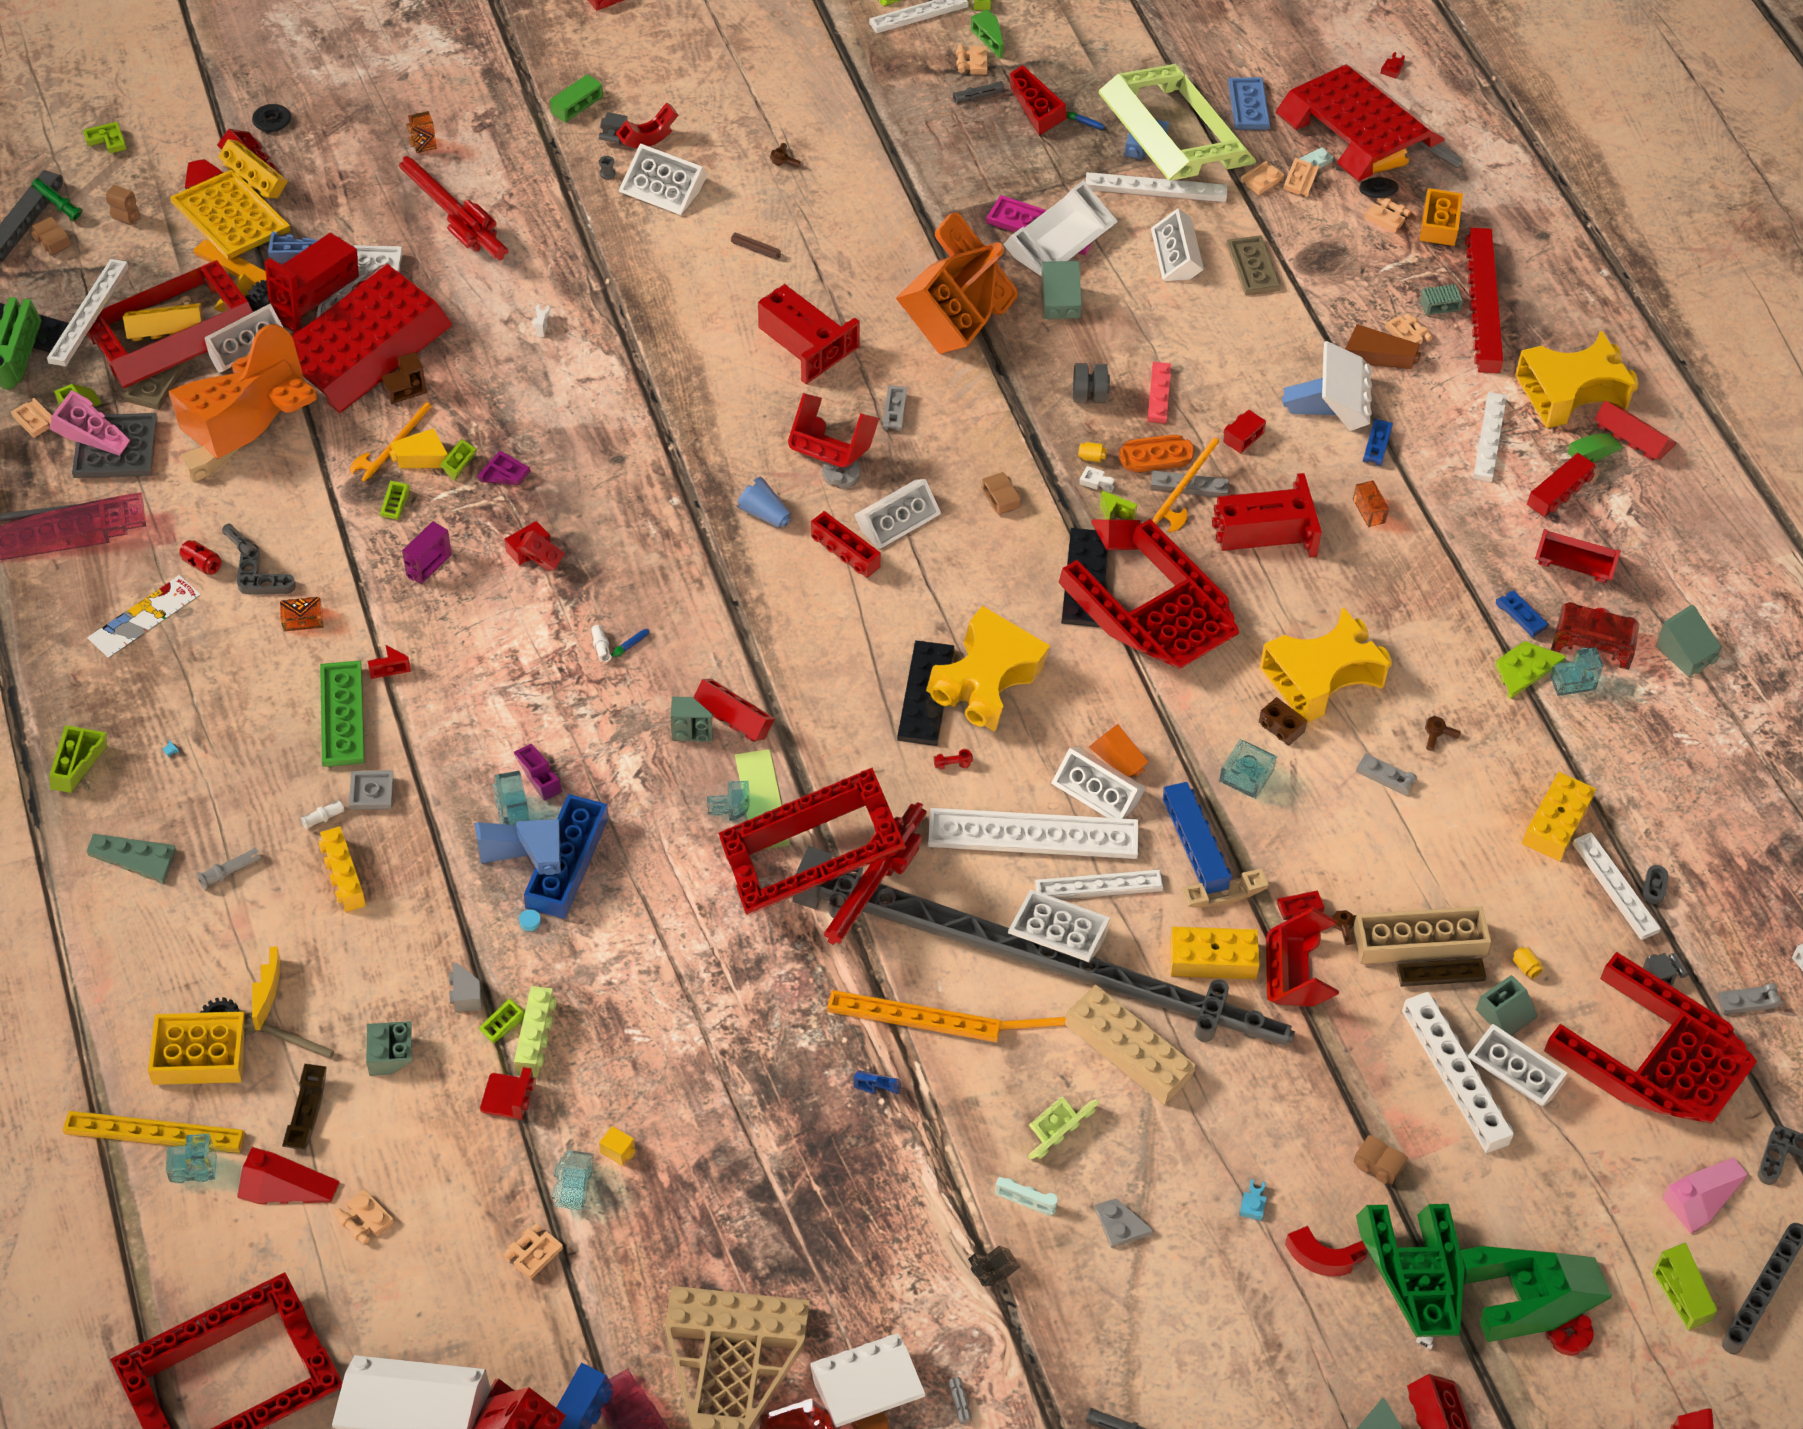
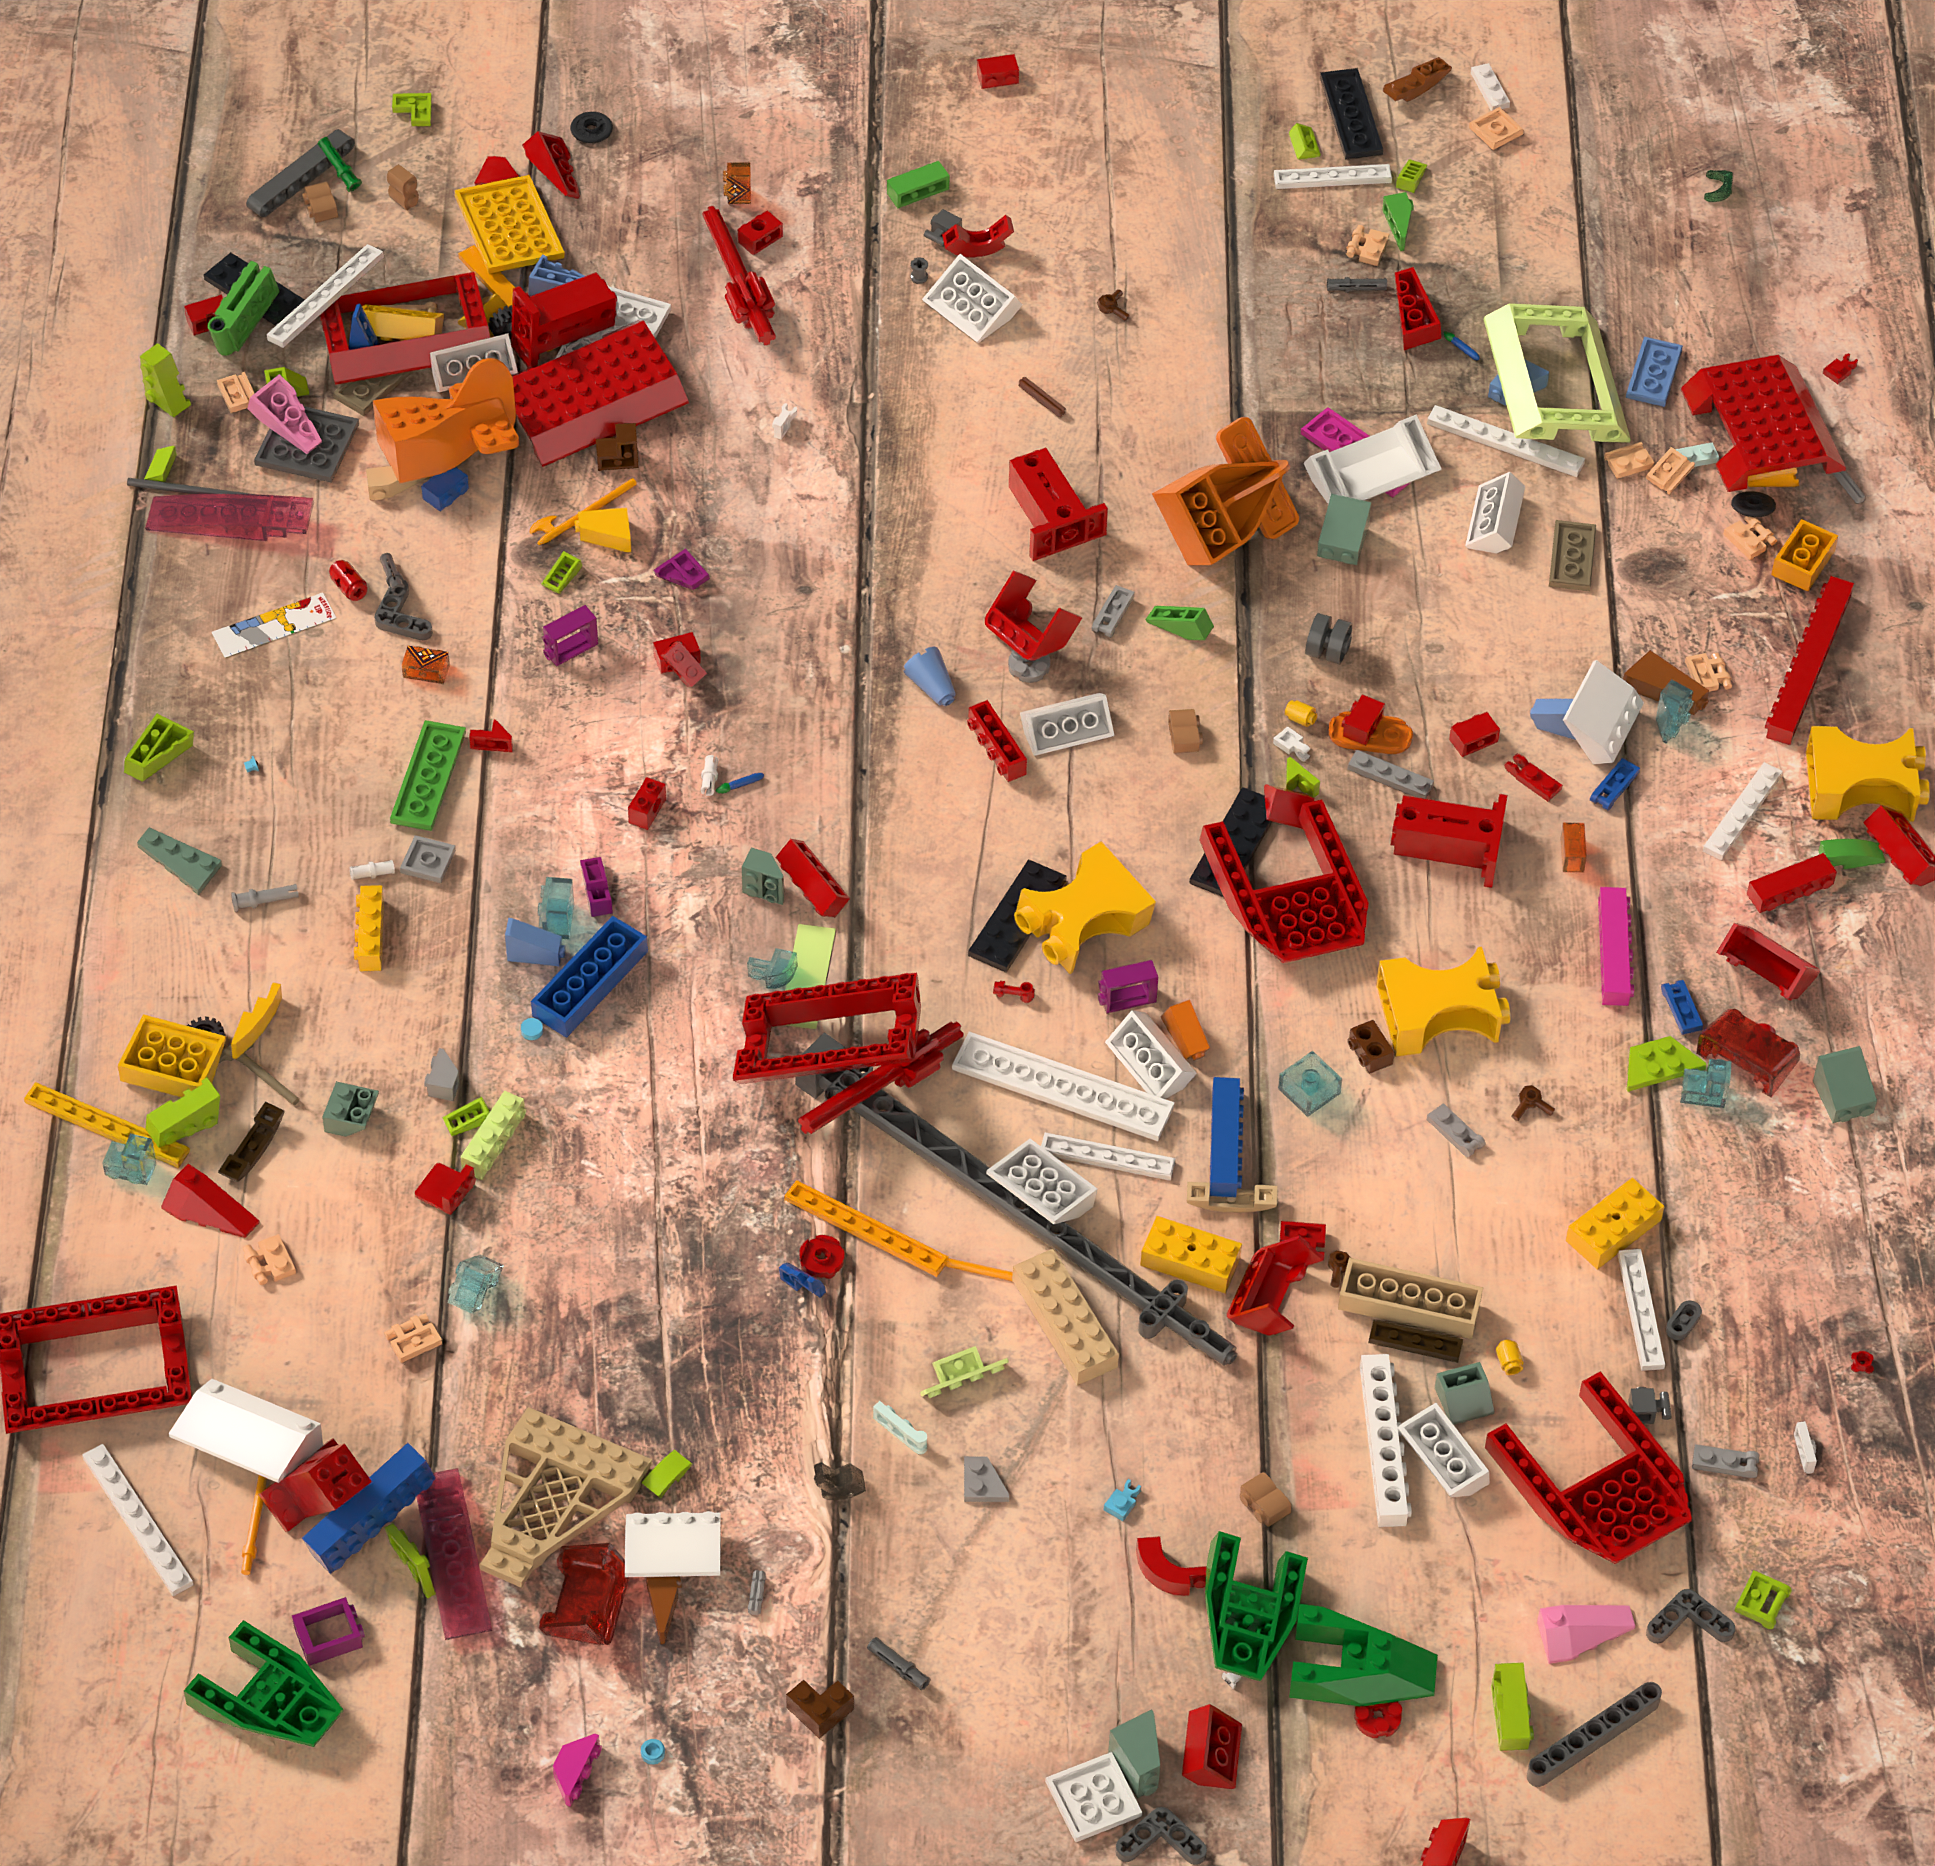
camera: 20 degrees right, 0 degrees up
(134, 335) = (361, 332): none -> blue slope
(231, 1101) = (185, 1116): none -> lime wedge
(253, 169) = (548, 181): yellow brick -> none
(259, 453) = (445, 488): none -> blue brick
(455, 169) = (760, 232): none -> red brick
(458, 459) = (641, 546): lime slope -> none
(542, 844) = (567, 957): medium blue slope -> none
(555, 683) = (647, 803): none -> red brick
(617, 1146) = (529, 1265): yellow brick -> none
(828, 1309) = (666, 1472): none -> lime slope
(885, 1066) = (817, 1267): none -> red plate
(958, 401) = (1187, 622): none -> bright green slope
(1055, 727) = (1131, 996): none -> magenta window
(1149, 443) = (1363, 719): none -> red brick
(1159, 392) = (1404, 668): coral plate -> none
(1178, 519) = (1361, 809): light orange piece -> none
(1308, 454) = (1533, 777): none -> red hinge
(1398, 368) = (1673, 709): none -> clear light blue slope
(1441, 299) = (1761, 647): sand green brick -> none
(1443, 577) = (1615, 946): none -> dark pink brick

